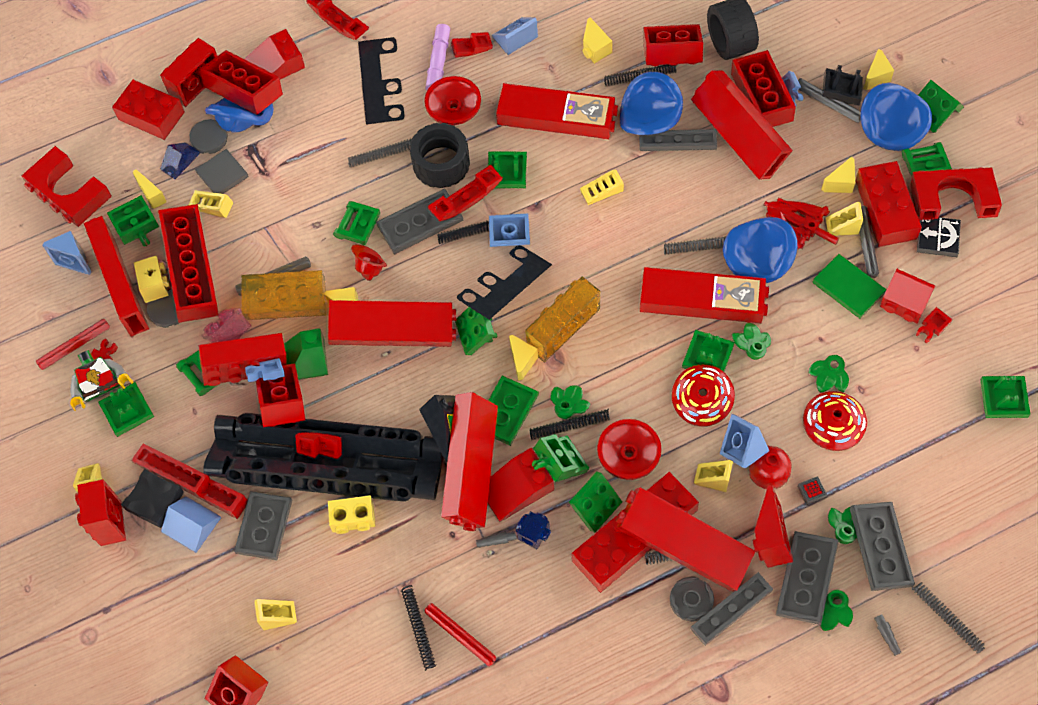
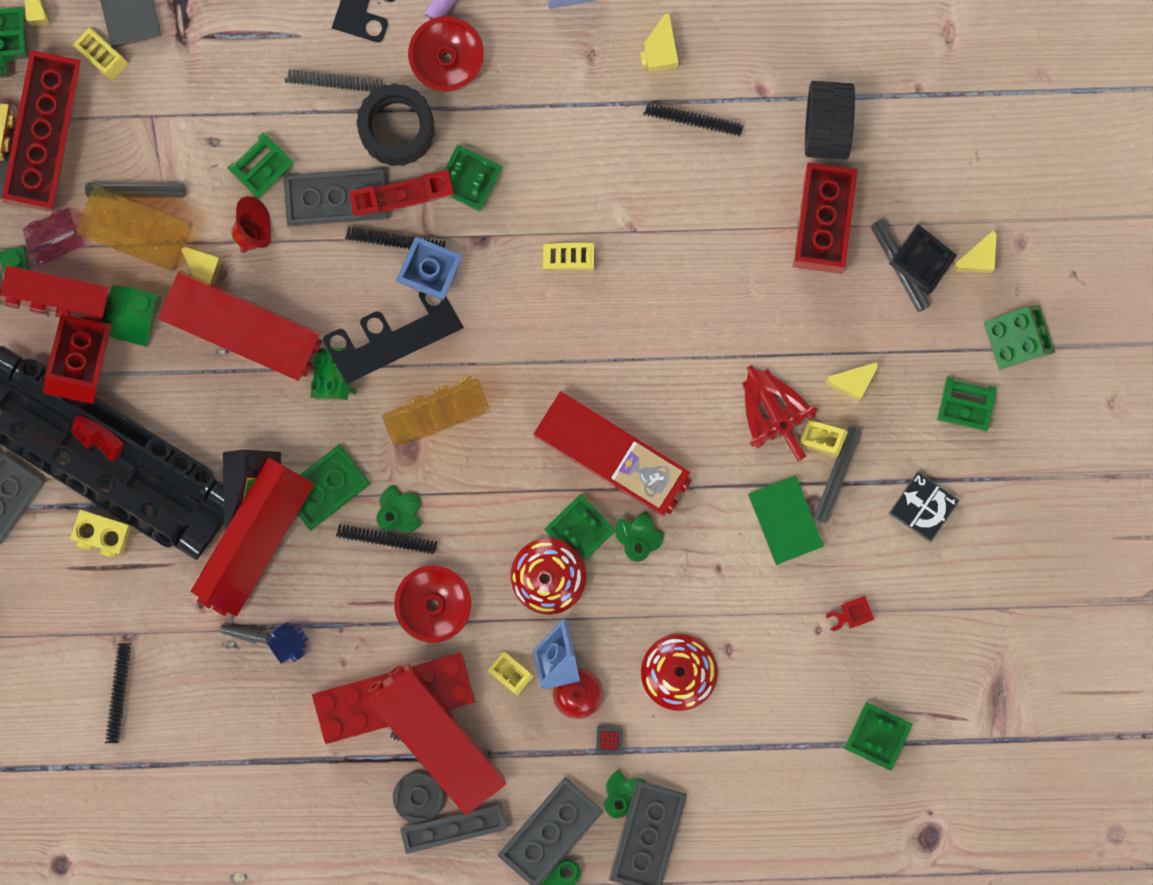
camera: 20 degrees right, 20 degrees up
(267, 369) = (75, 327): medium blue plate -> none
(460, 634) = (158, 721): red axle -> none
(518, 485) = (294, 585): red slope -> none
(523, 356) = (371, 433): light yellow slope -> none
(556, 111) = (565, 125): red brick -> none
(559, 457) = (353, 578): green plate -> none
(595, 502) = (366, 647): green plate -> none
(651, 104) = (677, 178): blue piece -> none
(673, 44) = (748, 103): red brick -> none
(679, 140) = (690, 235): dark grey plate -> none
(685, 244) = (684, 400): dark grey piece -> none
(741, 124) = (770, 255): red brick -> none
(761, 248) = (704, 430): blue piece -> none
(771, 532) = (535, 771): red slope -> none
(792, 86) = (861, 228): medium blue plate -> none
(828, 376) = (700, 620): green plate -> none
(888, 204) = (886, 440): red brick -> none
(894, 117) = (959, 332): blue piece -> none
(907, 296) = (835, 571): slope -> none
(977, 182) = (1006, 462): red arch -> none

